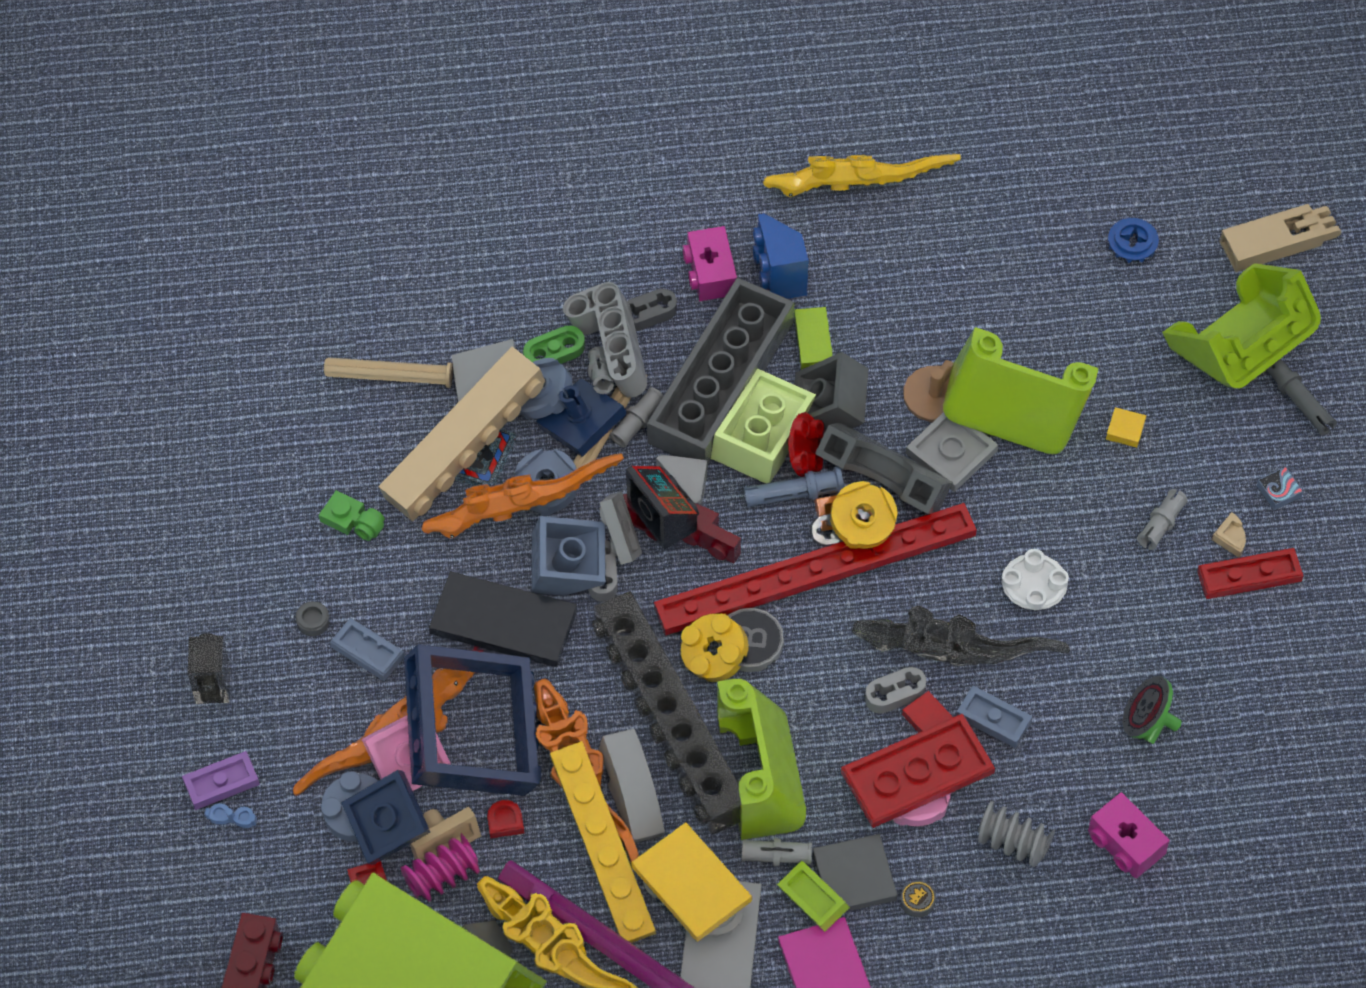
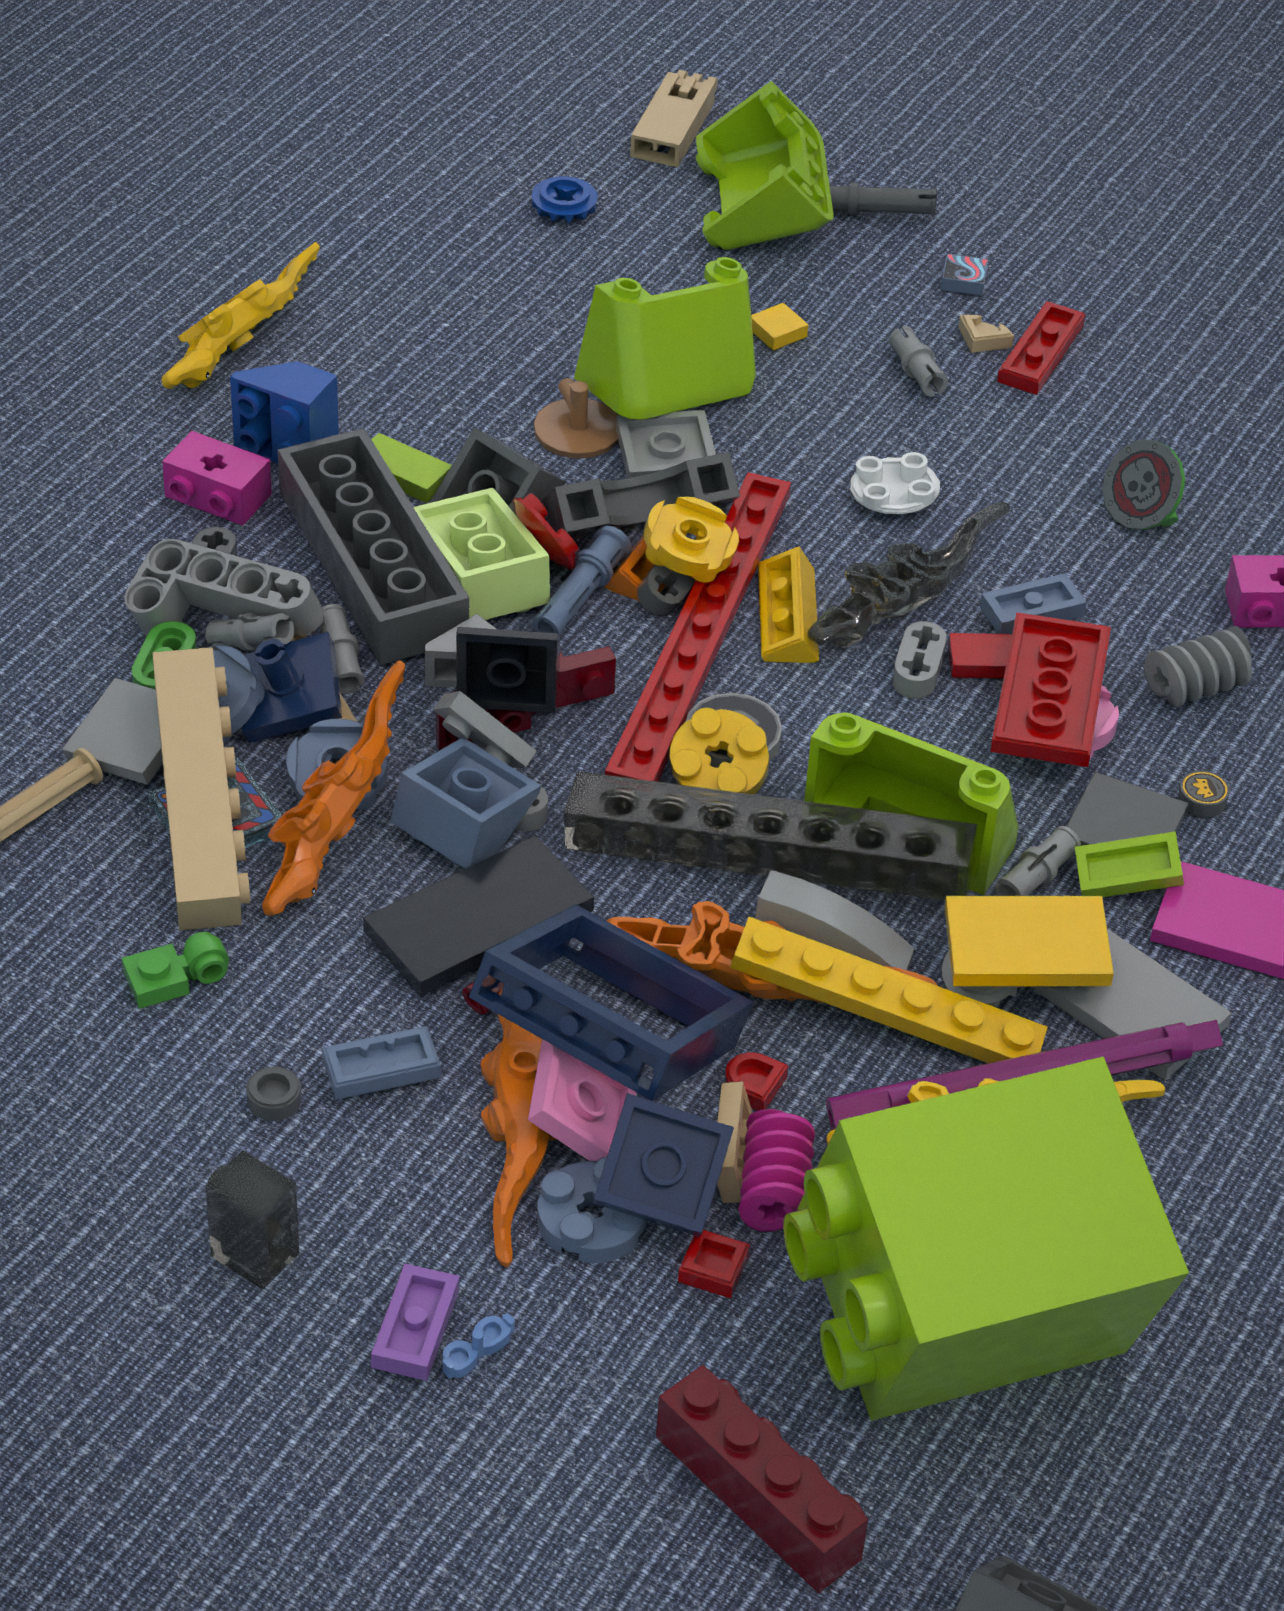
camera: 55 degrees left, 15 degrees down
(880, 597) = (787, 608): none -> yellow slope

